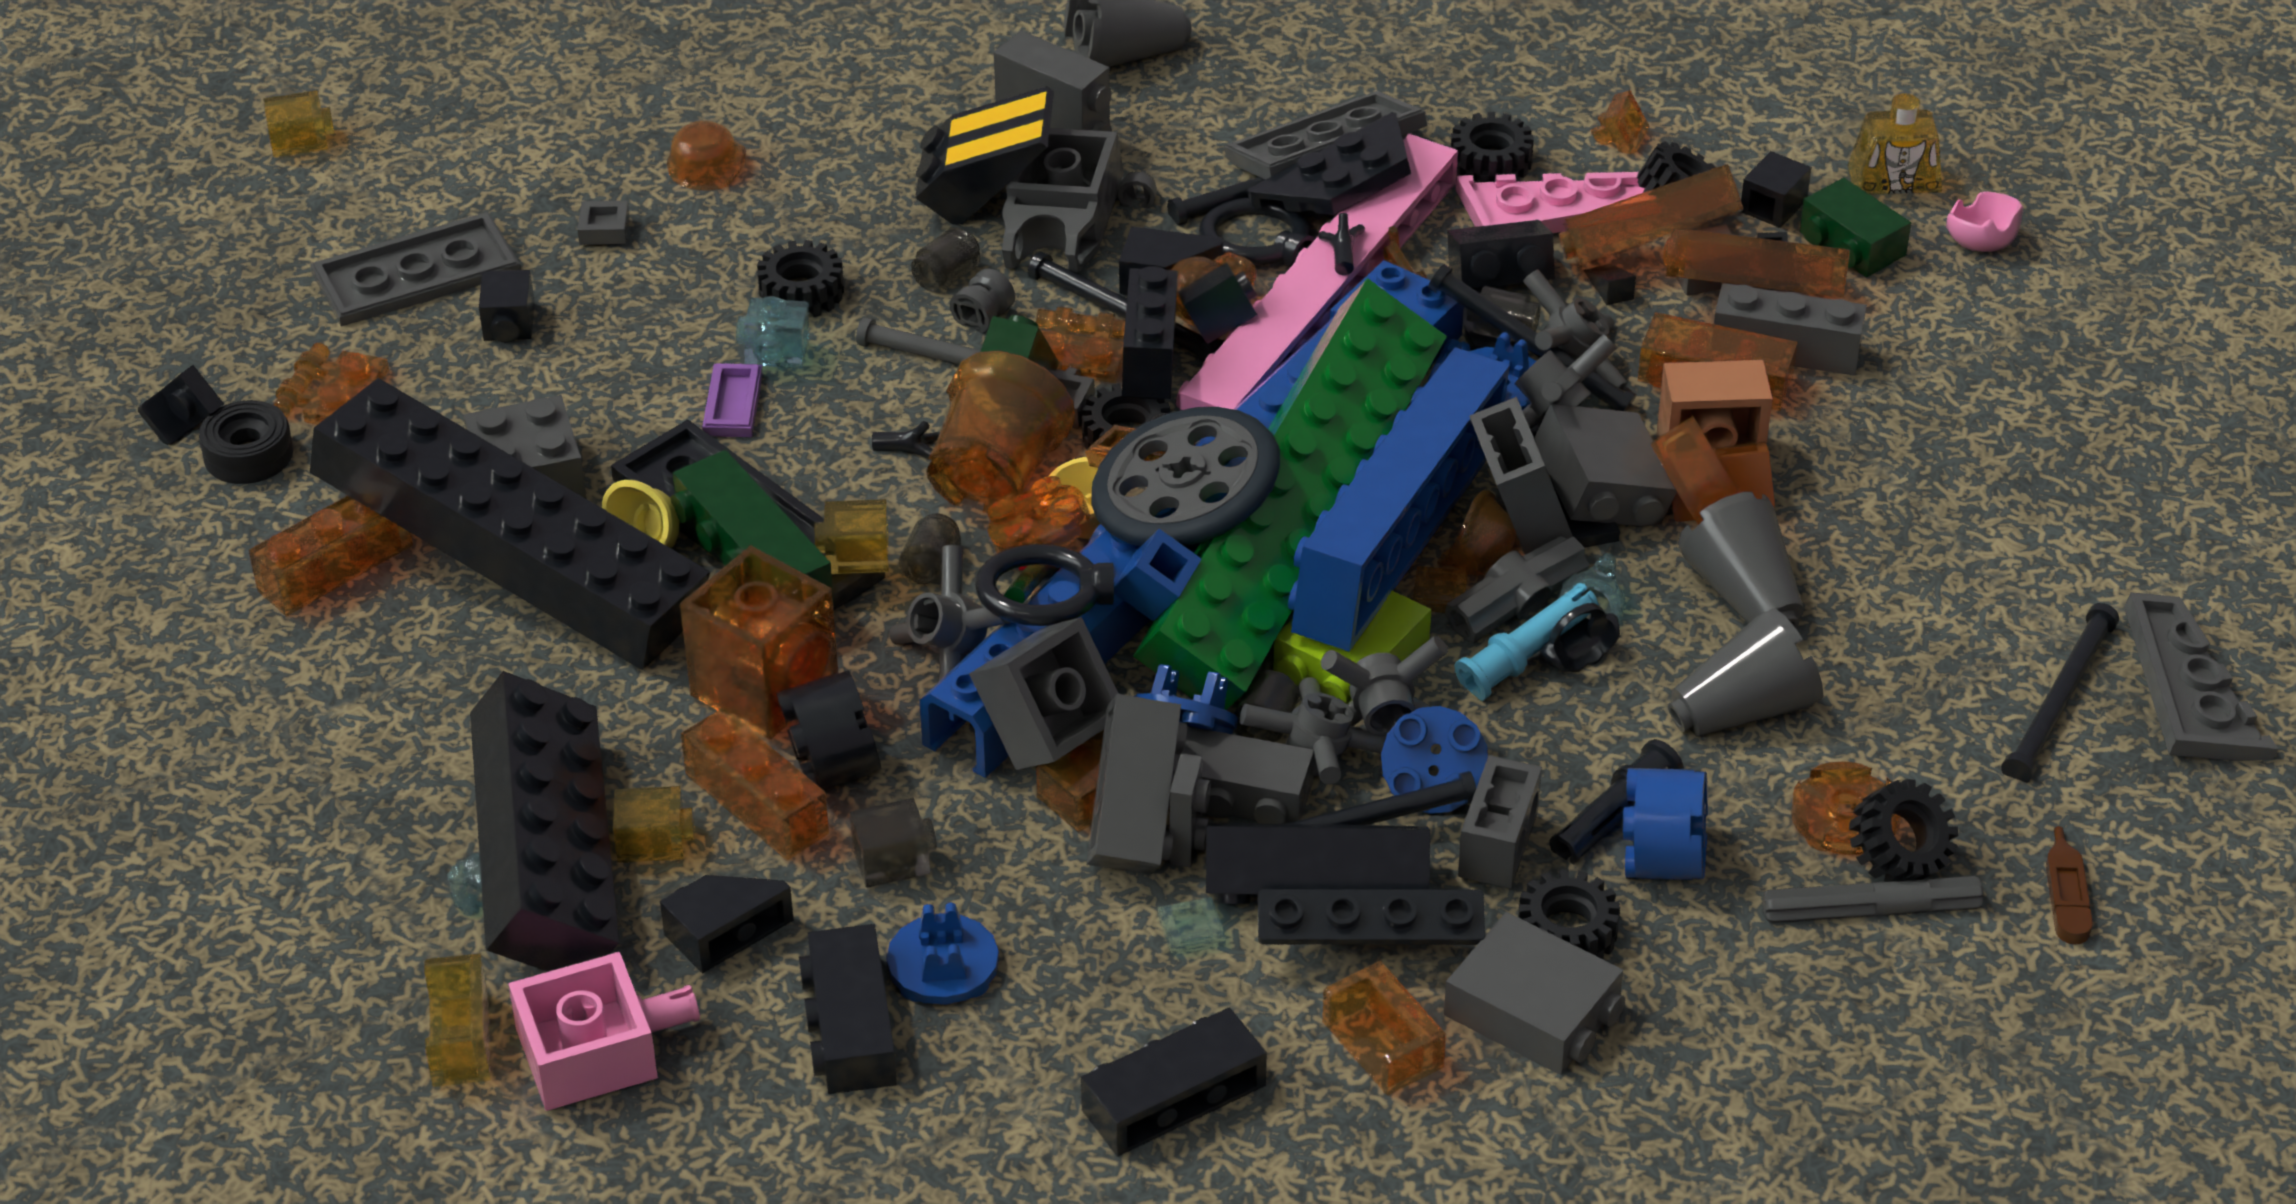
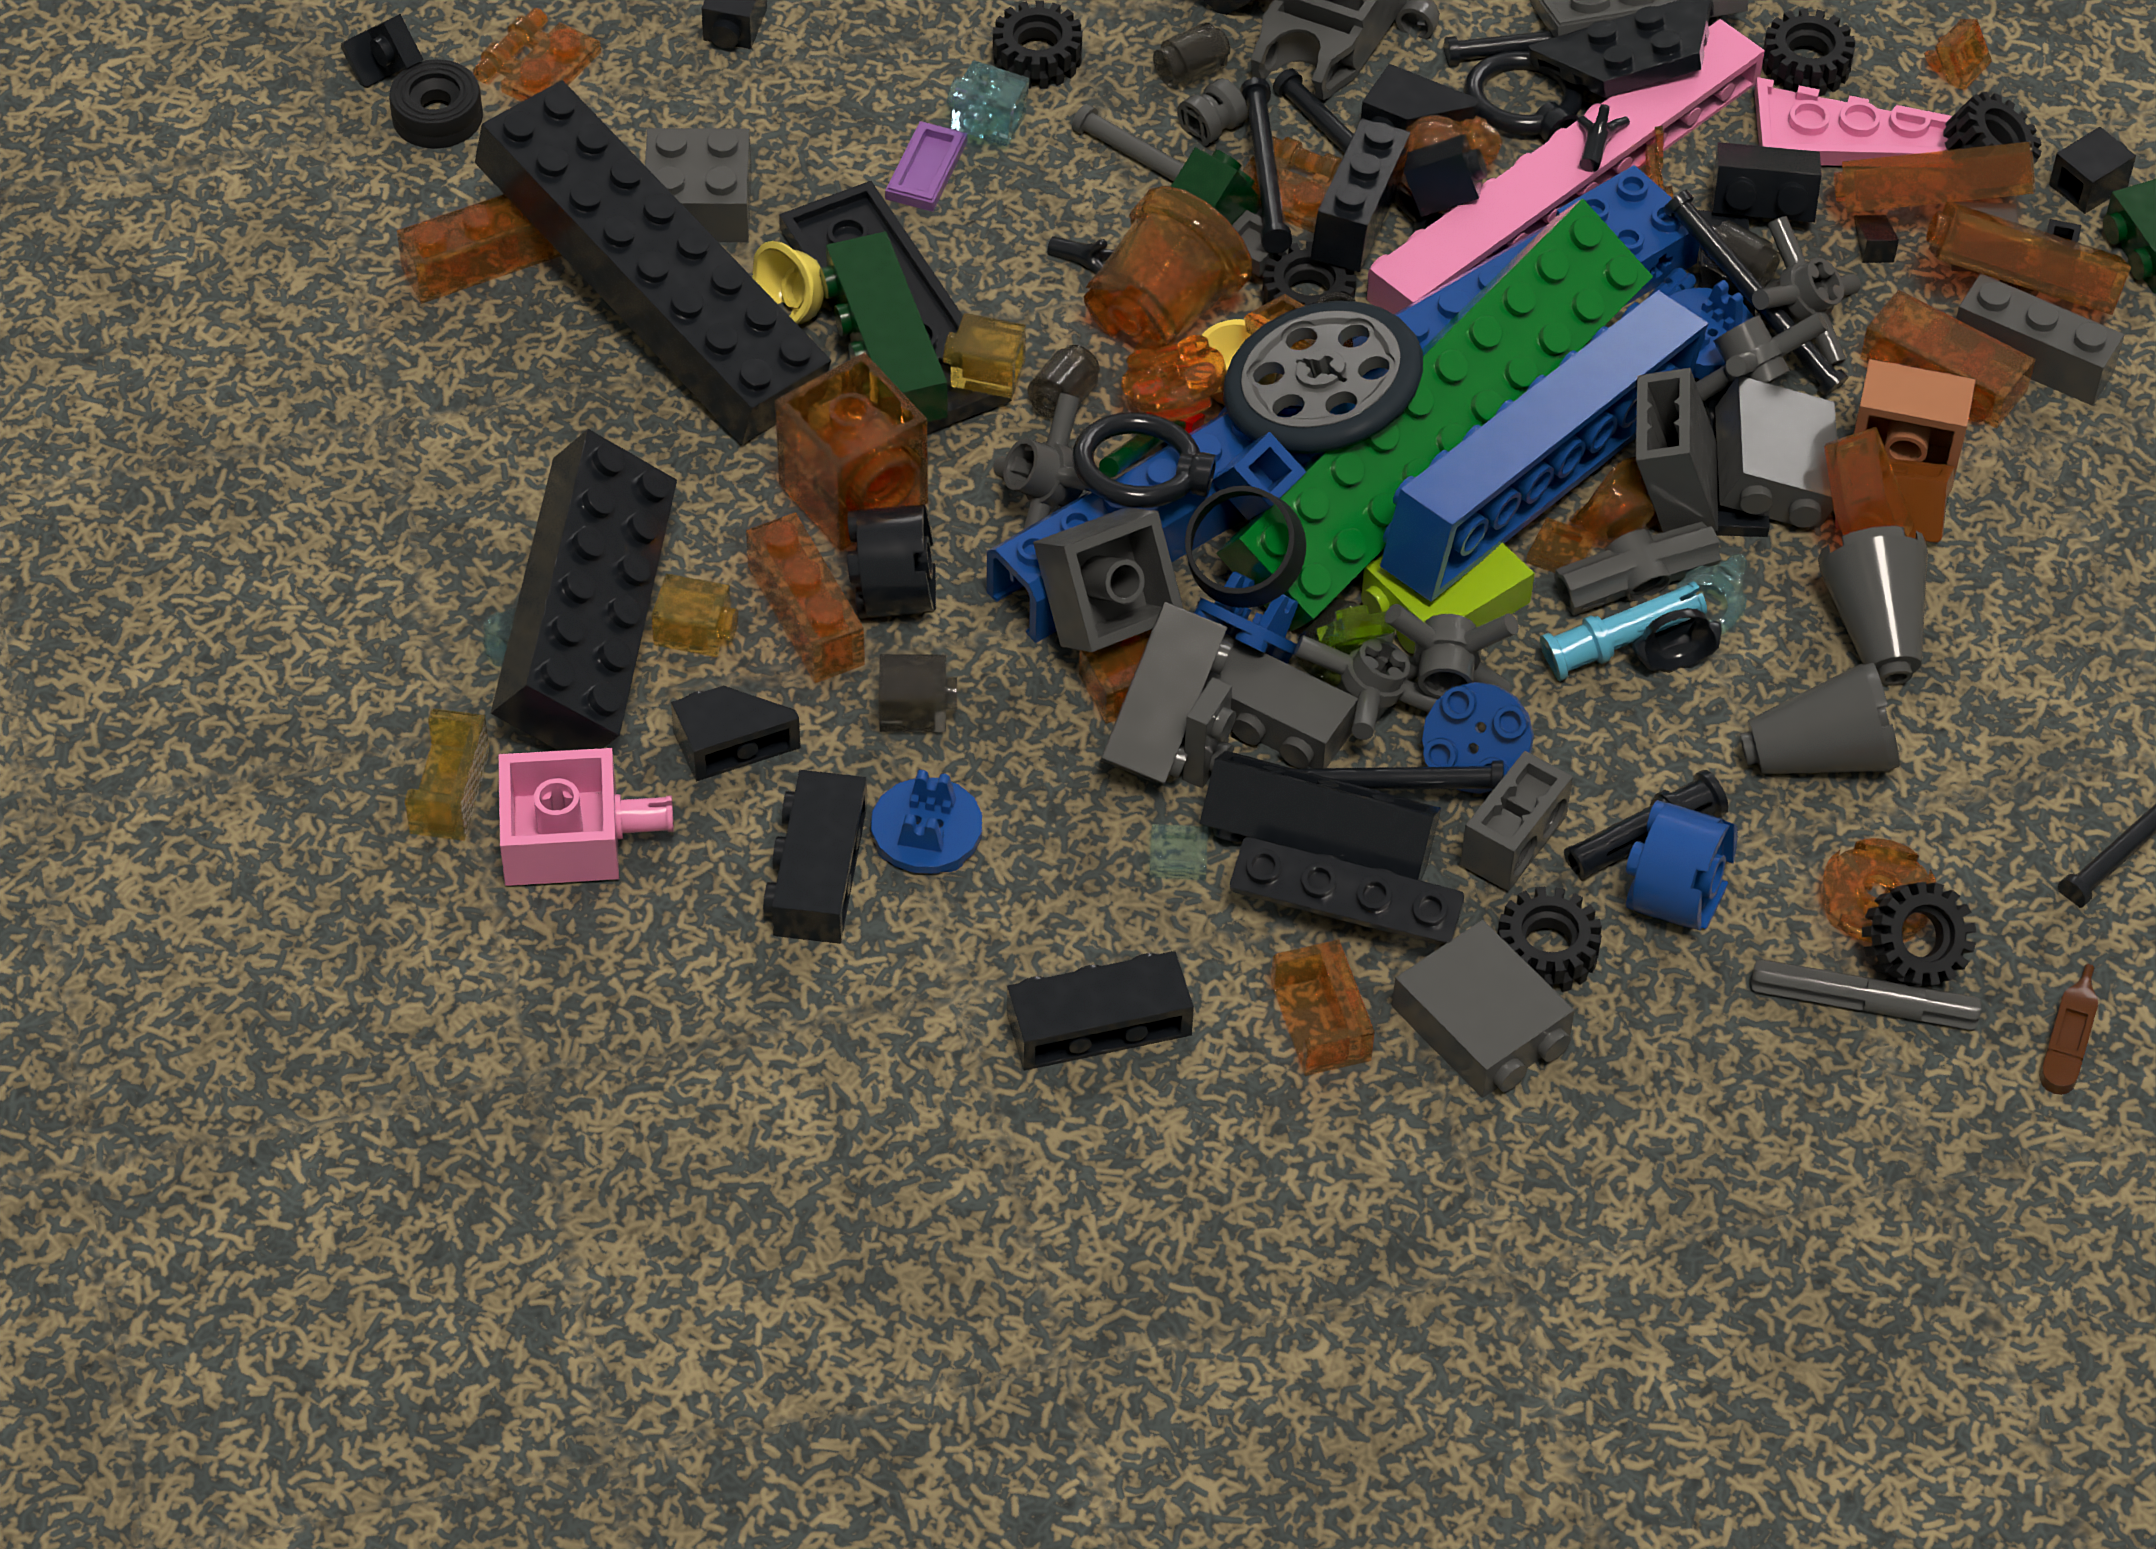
camera: 15 degrees right, 10 degrees up
(1084, 381) = (1275, 235): none -> black bar
(1181, 680) = (1273, 586): none -> black tyre
(1290, 686) = (1354, 627): none -> clear neon green plate

